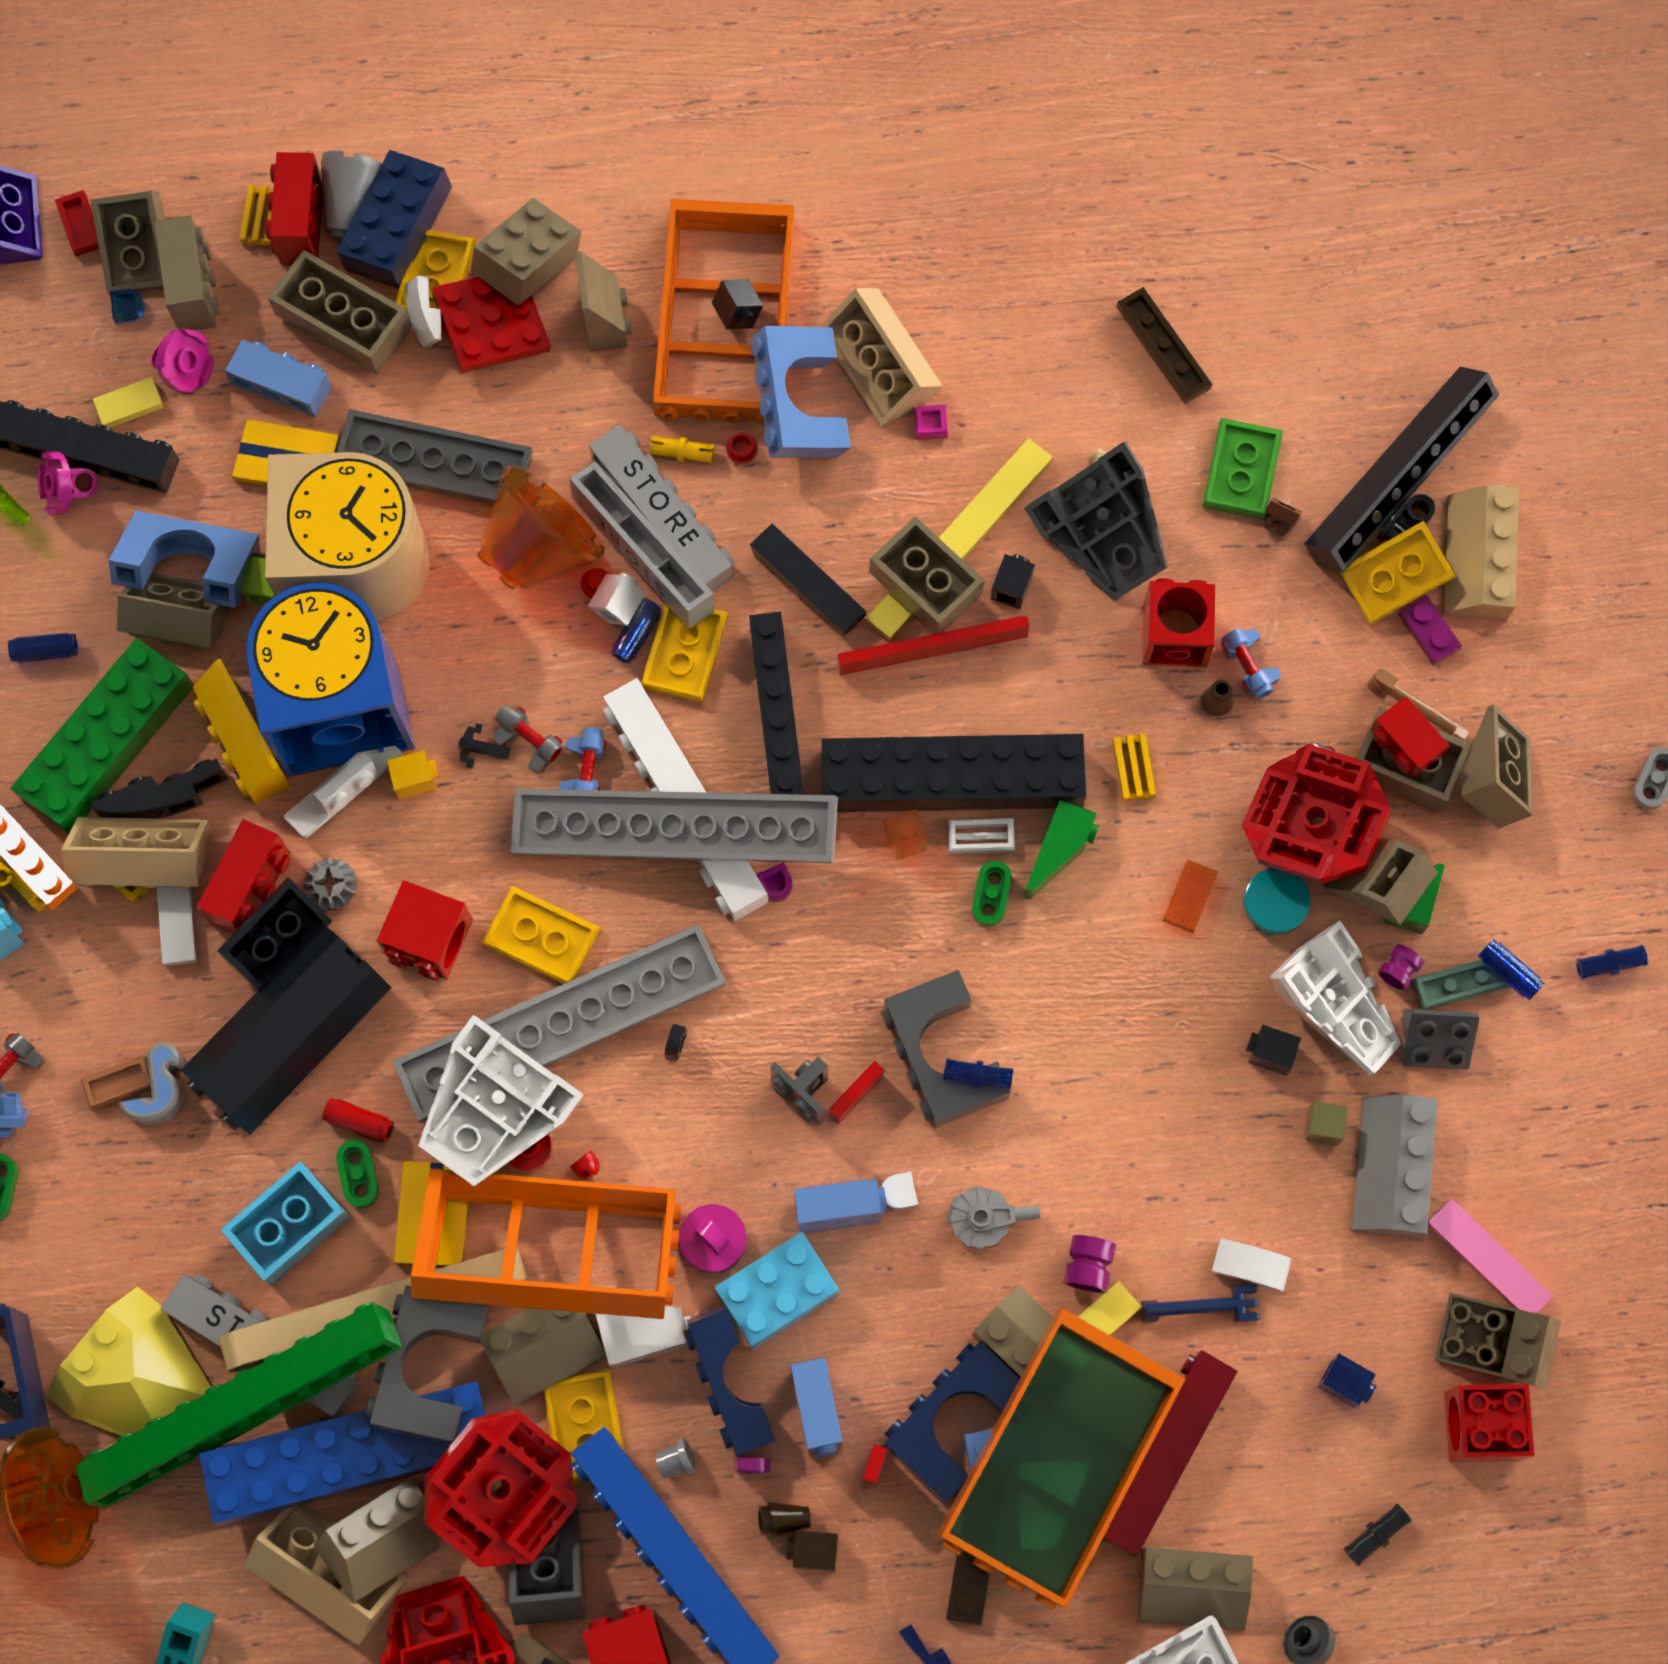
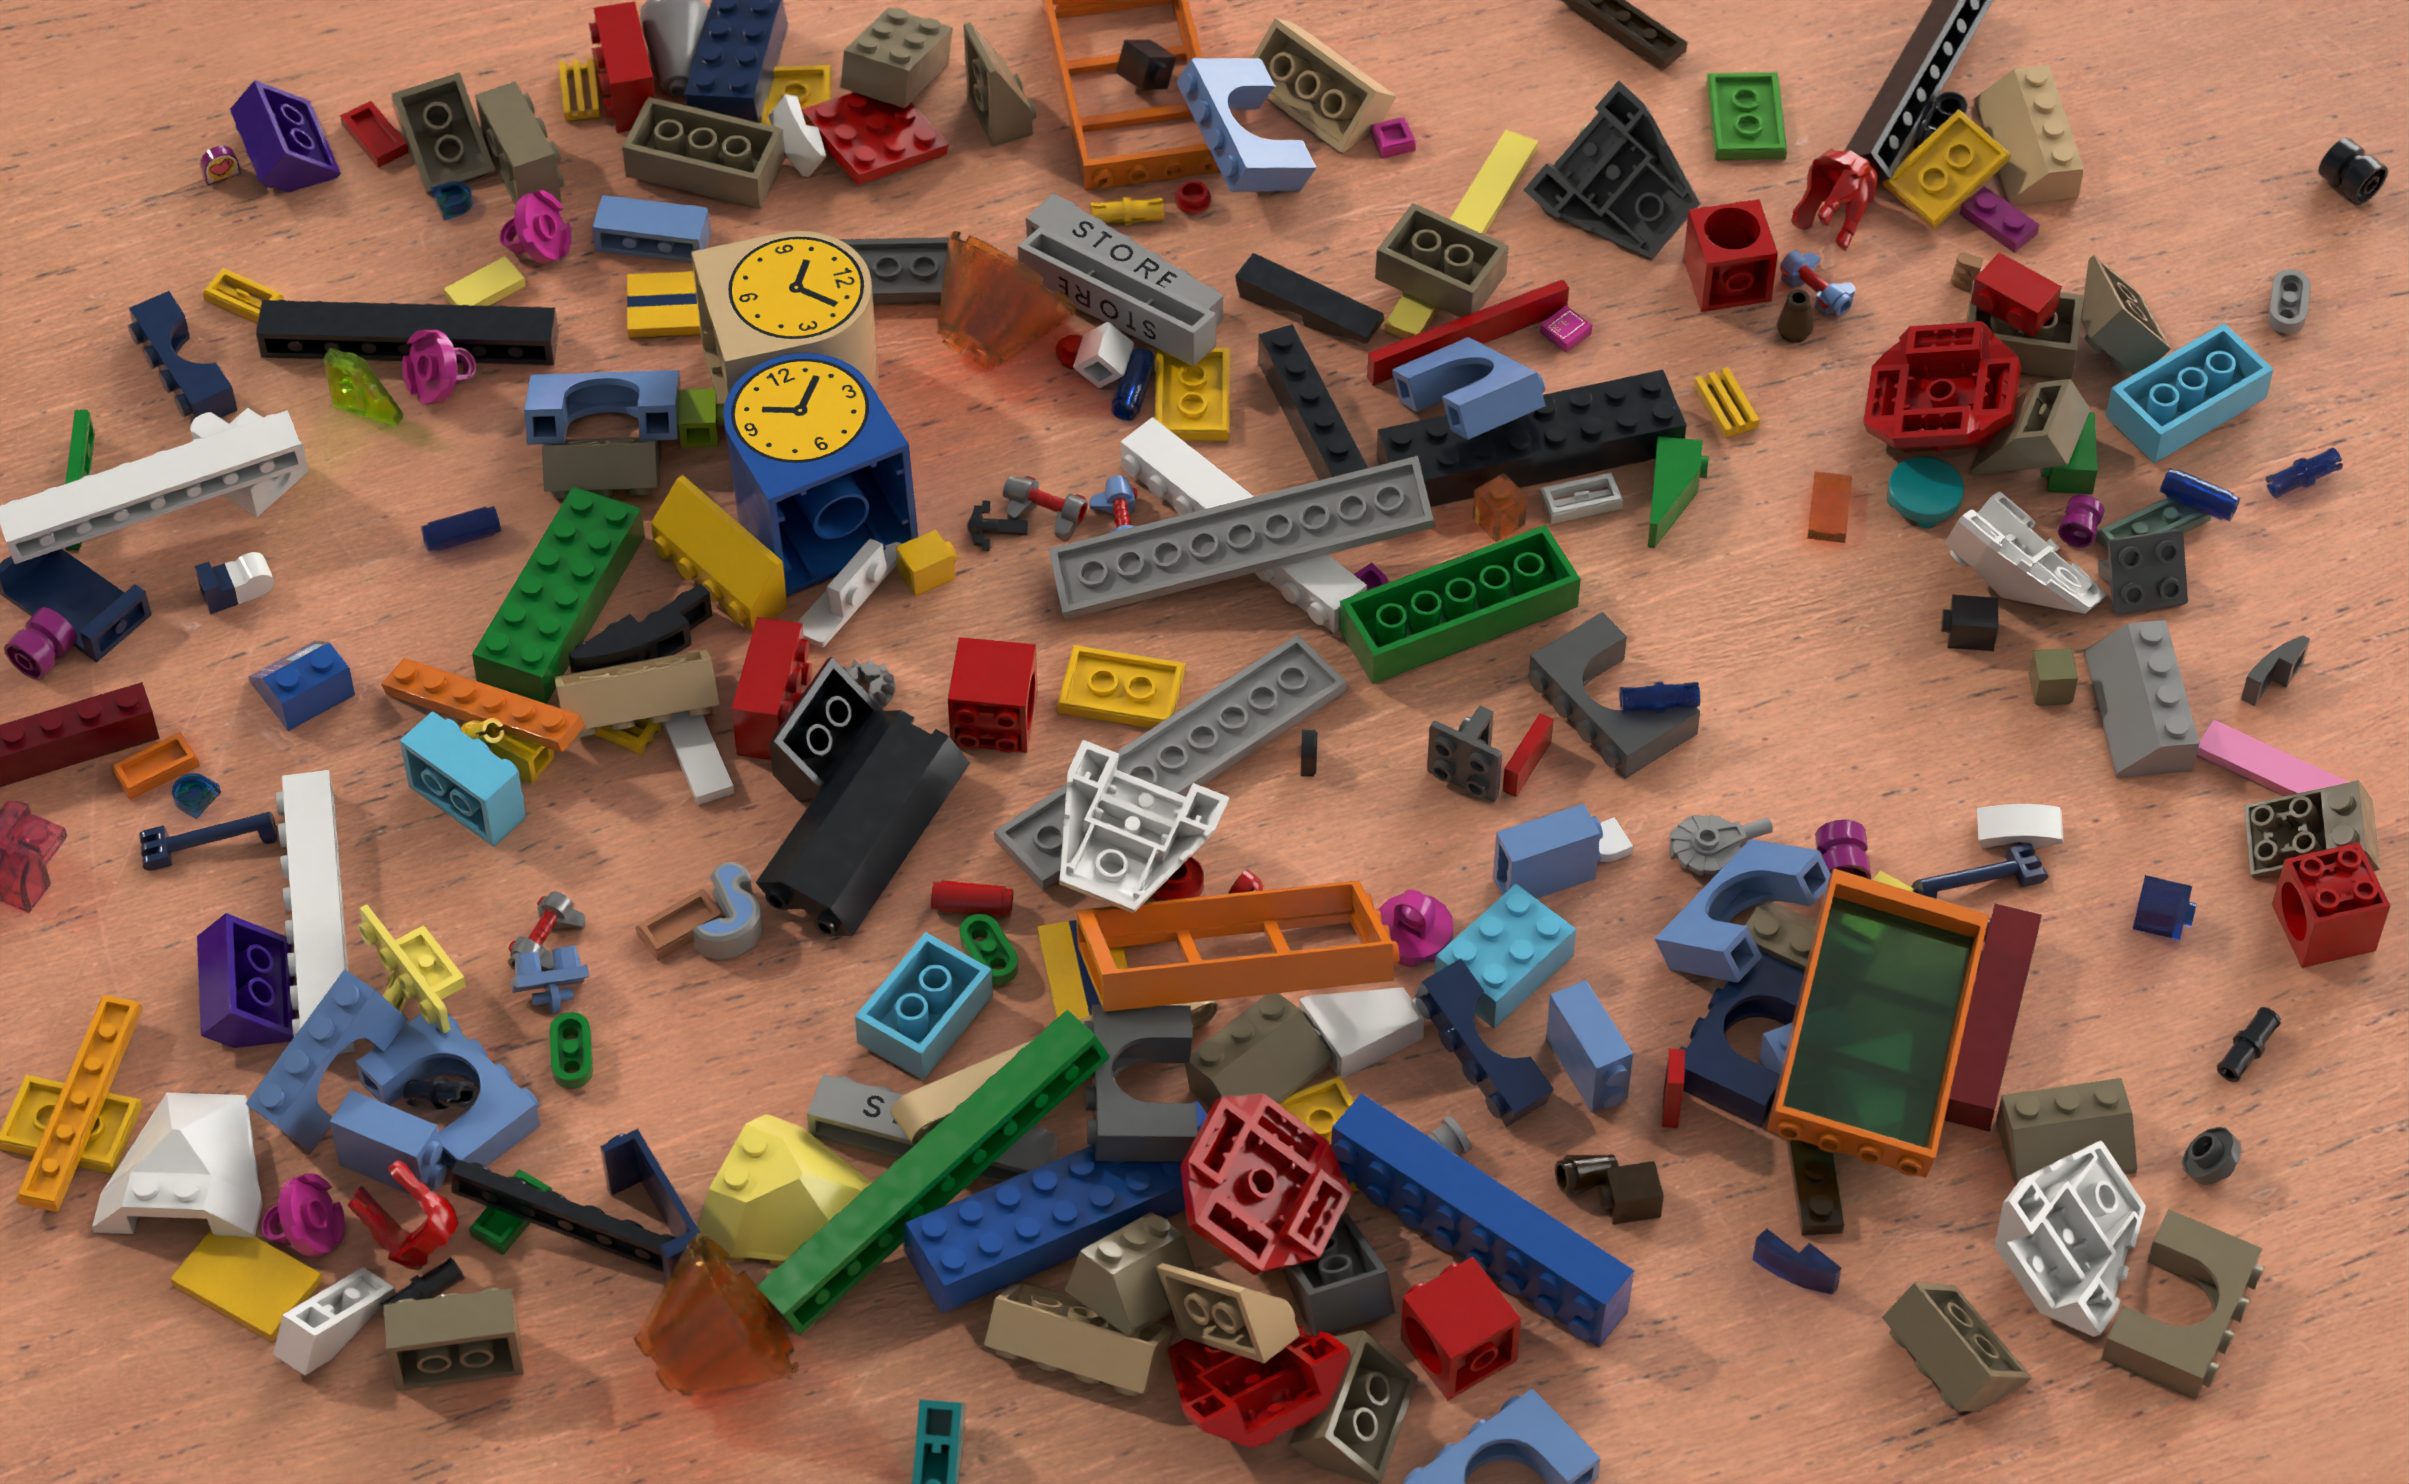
camera: 15 degrees left, 20 degrees down
(443, 1598) = (1228, 1314): none -> tan slope
(753, 1465) = (1533, 1128): magenta tile -> none
(841, 929) = (1459, 604): none -> green brick
(913, 686) = (1475, 384): none -> medium blue arch
(990, 894) = (1614, 547): green plate -> none
(1006, 1265) = (1762, 871): none -> medium blue arch
(1012, 580) = (1534, 258): black brick -> none
(1019, 657) = (1566, 328): none -> dark pink tile
(1282, 512) = (1804, 142): reddish brown tile -> none
(1308, 580) = (1837, 180): none -> red piece
(1526, 1159) = (2277, 666): none -> dark grey slope
(1535, 860) = (2189, 392): none -> medium azure brick

